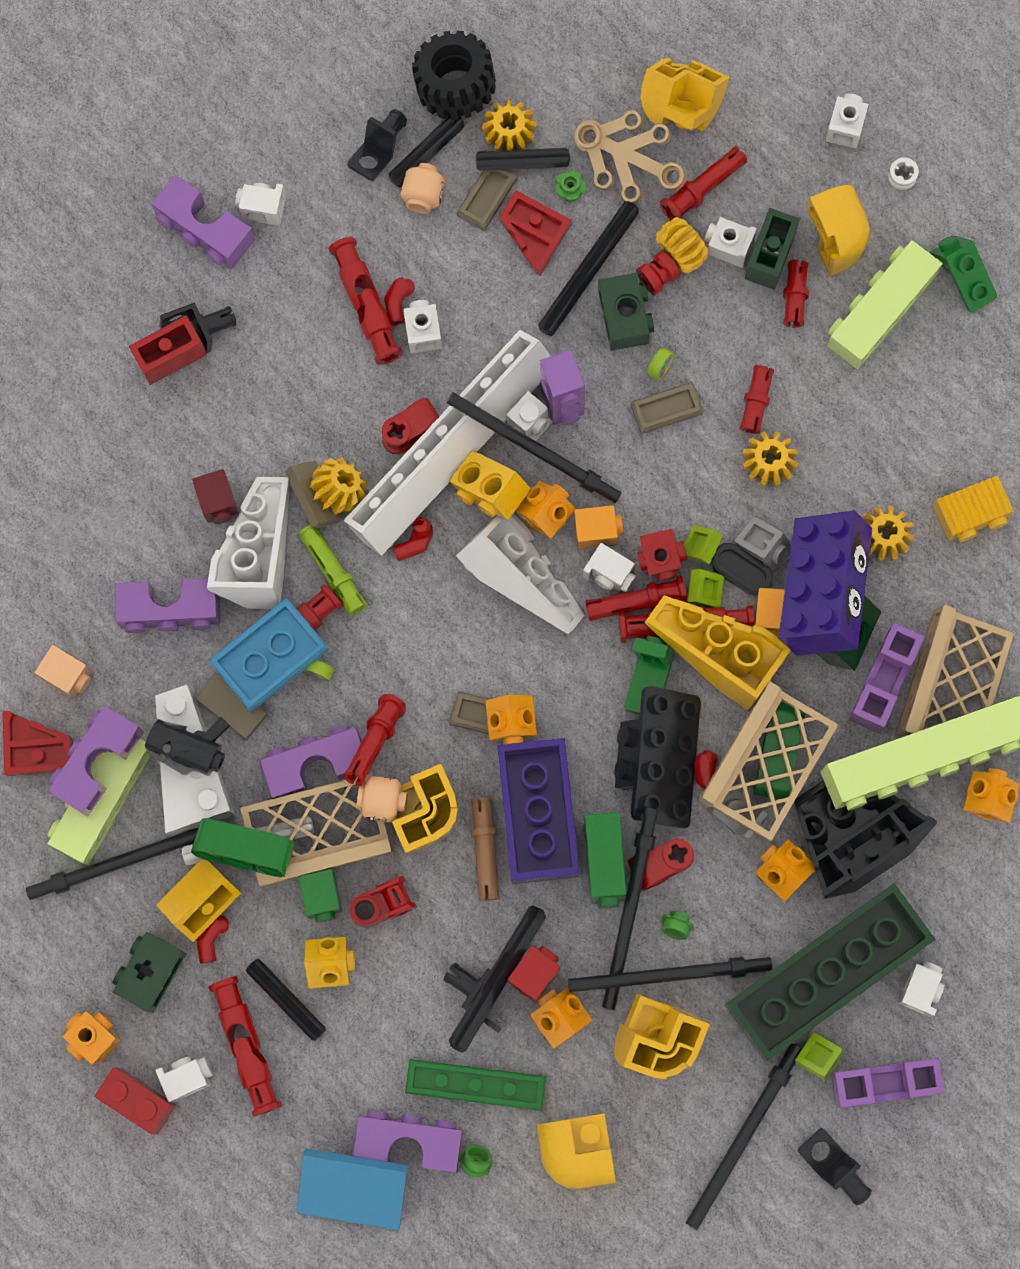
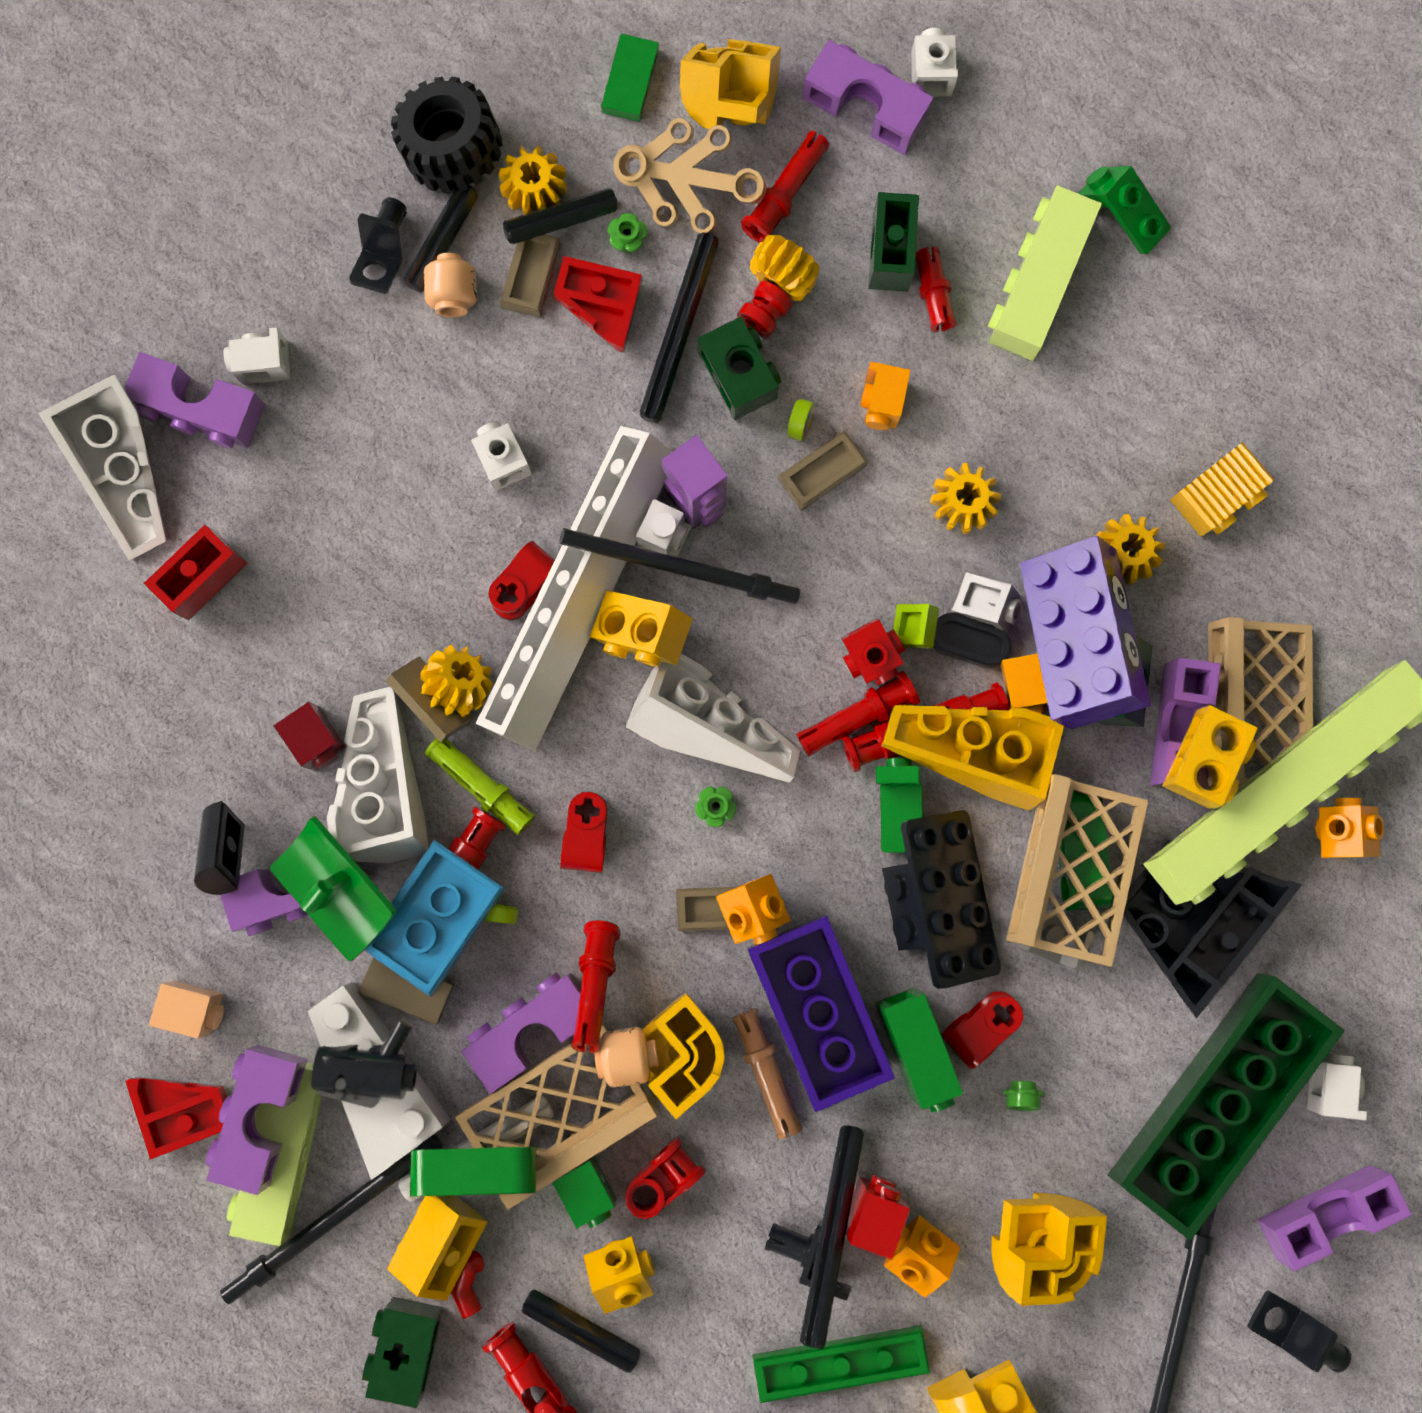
camera: 25 degrees left, 5 degrees up
(124, 559) = (219, 850): none -> black brick
(128, 242) = (108, 453): none -> white wedge
(202, 611) = (333, 890): none -> green shield
(203, 325) = (233, 527): black bracket -> none
(370, 311) = (433, 455): red piece -> none
(394, 297) = (455, 430): red arm -> none
(400, 634) = (582, 841): none -> red piece
(418, 541) = (574, 719): red arm -> none
(506, 646) = (704, 807): none -> bright green plate
(546, 508) = (717, 636): light orange brick -> none
(597, 526) = (784, 640): light orange brick -> none
(608, 67) = (630, 77): none -> green tile
(610, 569) = (816, 688): white brick -> none
(643, 842) = (961, 1017): black bar -> none
(704, 767) = (1000, 896): red arm -> none
(705, 588) = (936, 678): lime plate -> none
(730, 364) = (884, 396): none -> light orange brick
(734, 250) = (843, 259): white brick -> none
(735, 967) = (1106, 1127): black bar -> none
(756, 399) = (927, 430): red pin -> none
(771, 111) = (845, 76): none -> medium lavender arch
(785, 869) = (1134, 993): light orange brick -> none
(819, 1056) = (1242, 1207): lime plate -> none
(841, 227) = (969, 191): yellow brick -> none
(886, 697) = (1201, 750): none -> yellow brick
(898, 181) = (1019, 98): white bush -> none

